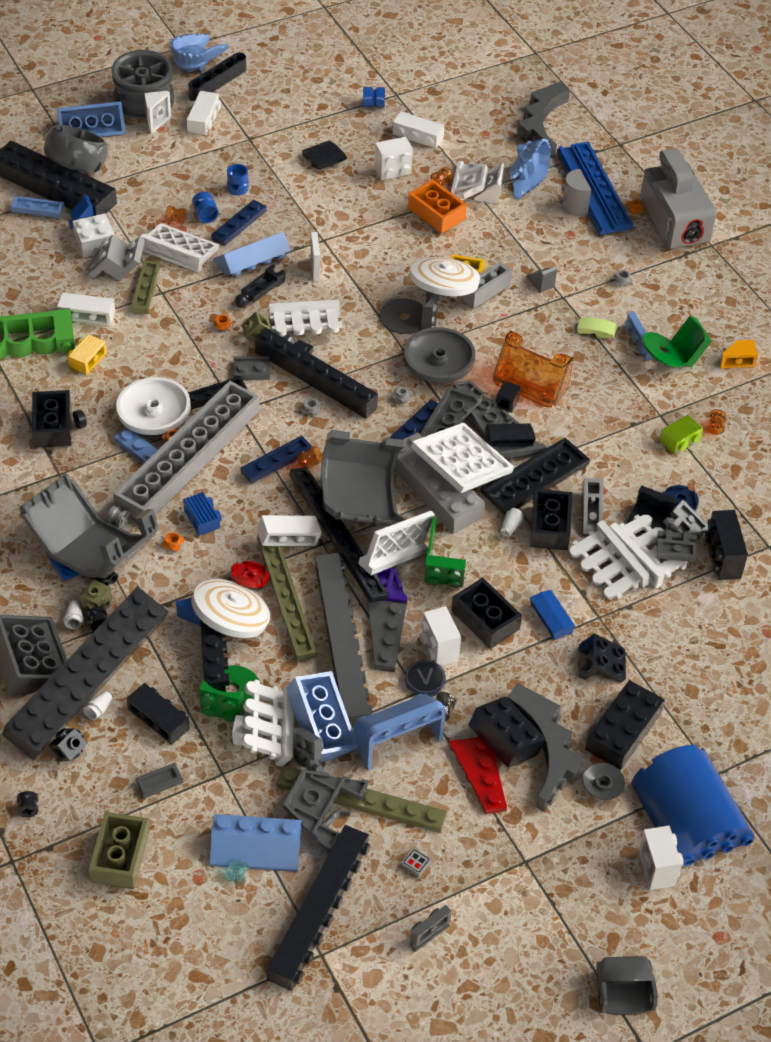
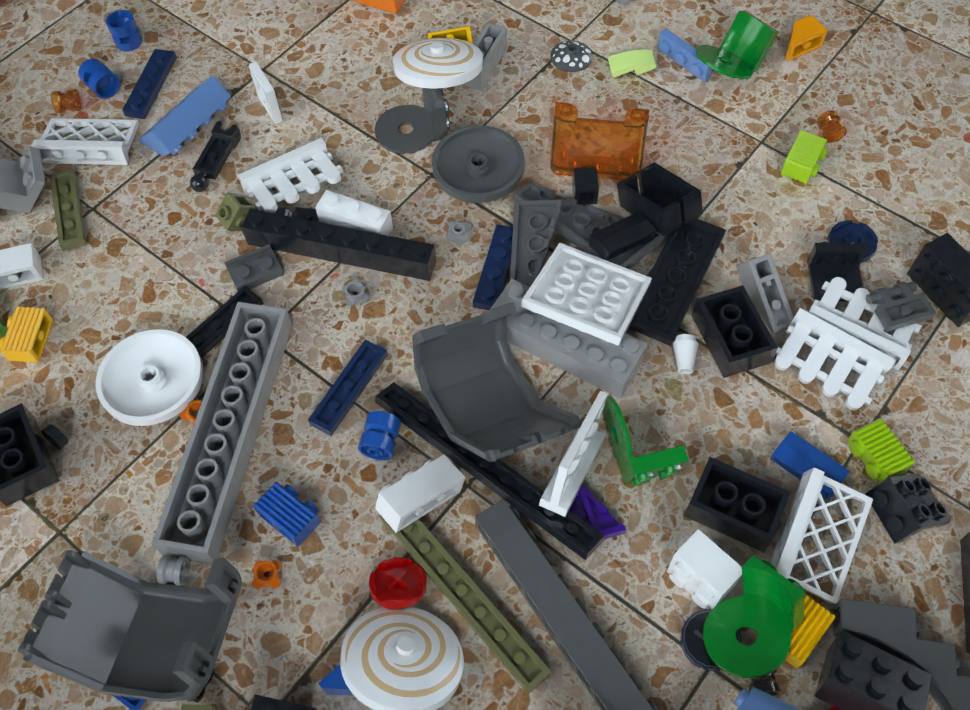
camera: 20 degrees left, 10 degrees up
(135, 445) = (152, 444): medium blue plate -> none
(222, 322) = (188, 220): orange plate -> none
(281, 492) = (380, 431): none -> blue wheel
(309, 458) = (390, 368): clear orange wheel -> none
(335, 356) = (353, 214): none -> white brick
(386, 631) = (621, 589): dark grey wing -> none
(466, 671) = (768, 606): none -> green piece
(482, 691) = (809, 632): none -> yellow brick
(515, 640) = (800, 518): none -> white fence
(543, 279) = (540, 25): dark grey slope -> none
(556, 308) = (571, 56): none -> dark grey dish
(556, 426) = (663, 198): none -> black piece
(604, 621) = (880, 451): none -> lime brick
(688, 519) = (884, 264): dark grey plate -> none

